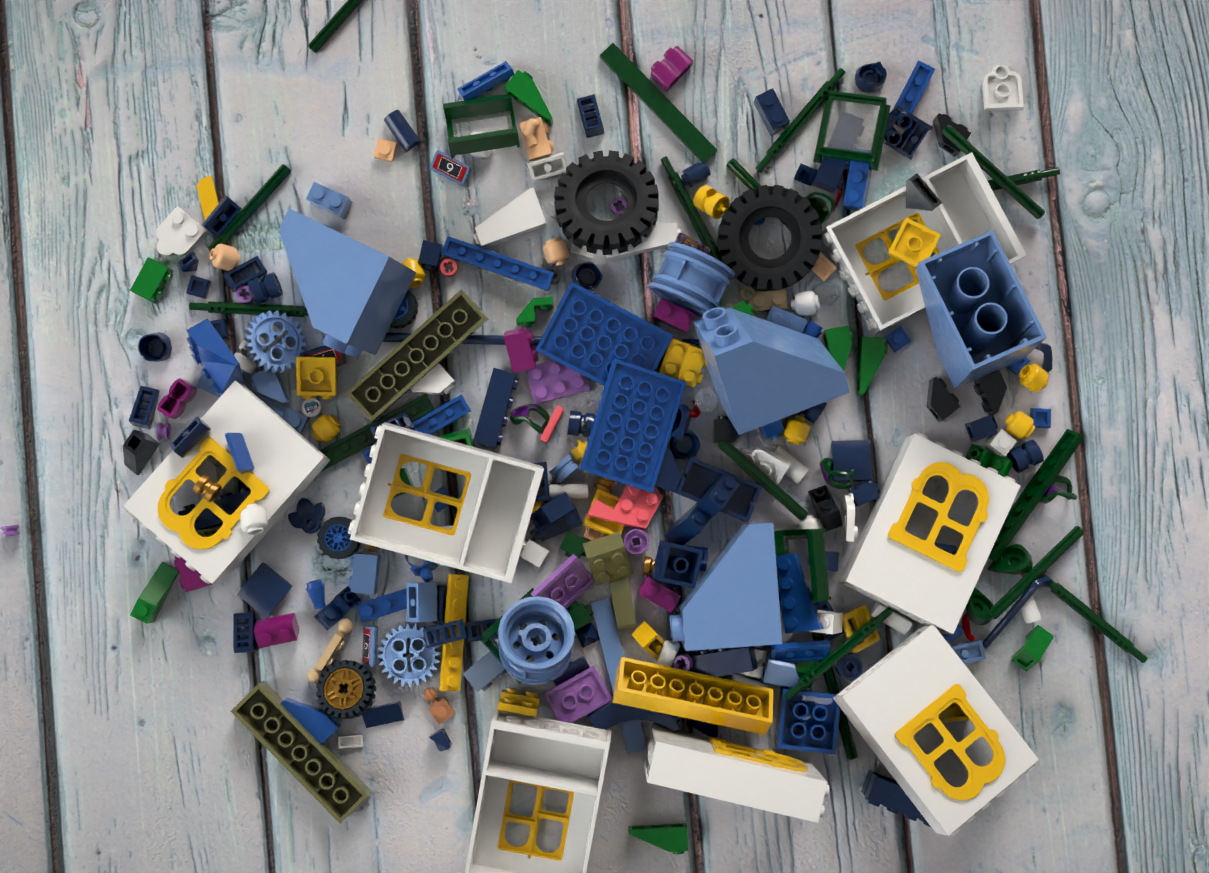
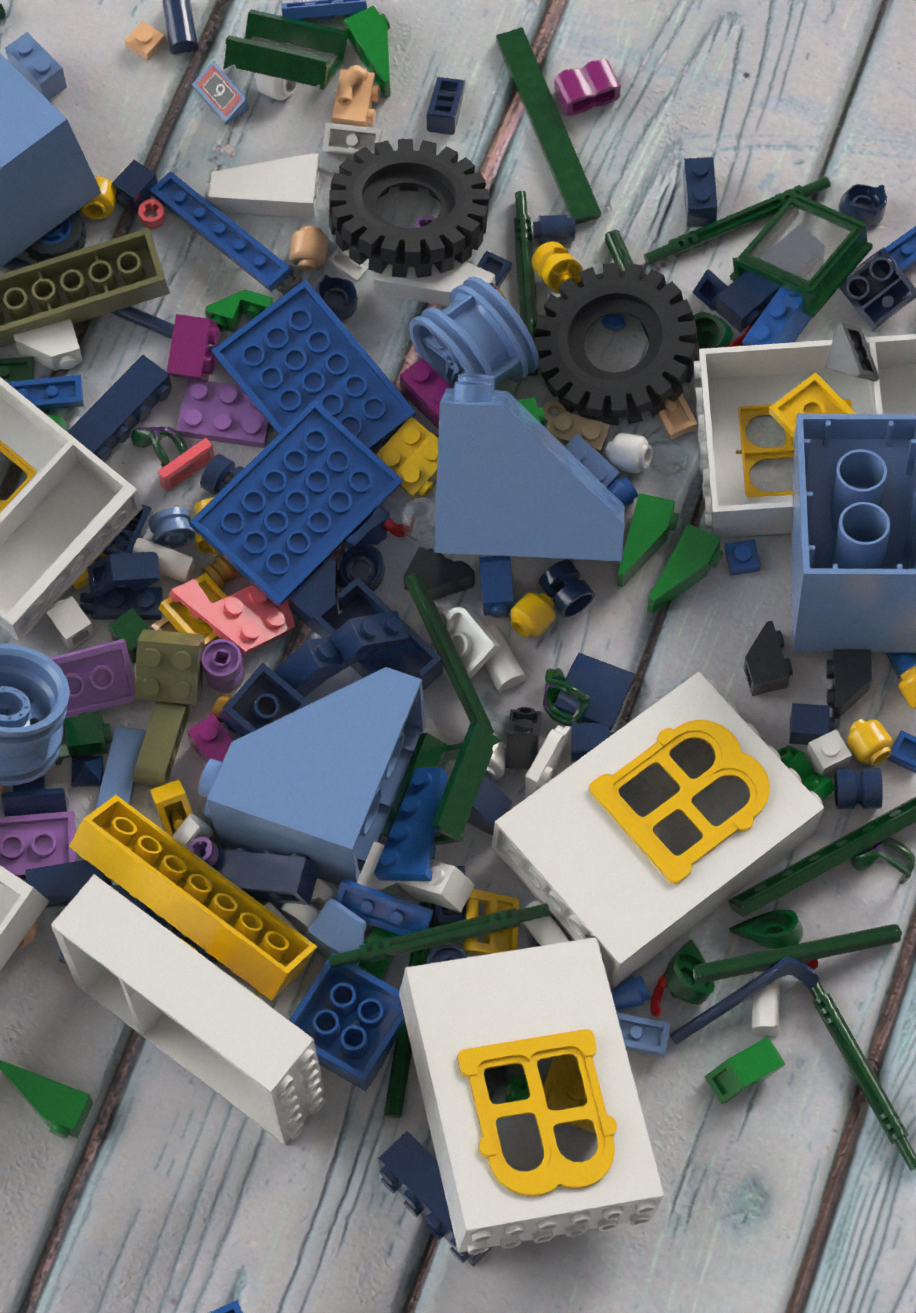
camera: 30 degrees right, 20 degrees down
(670, 214) = (495, 265): none -> dark blue tile

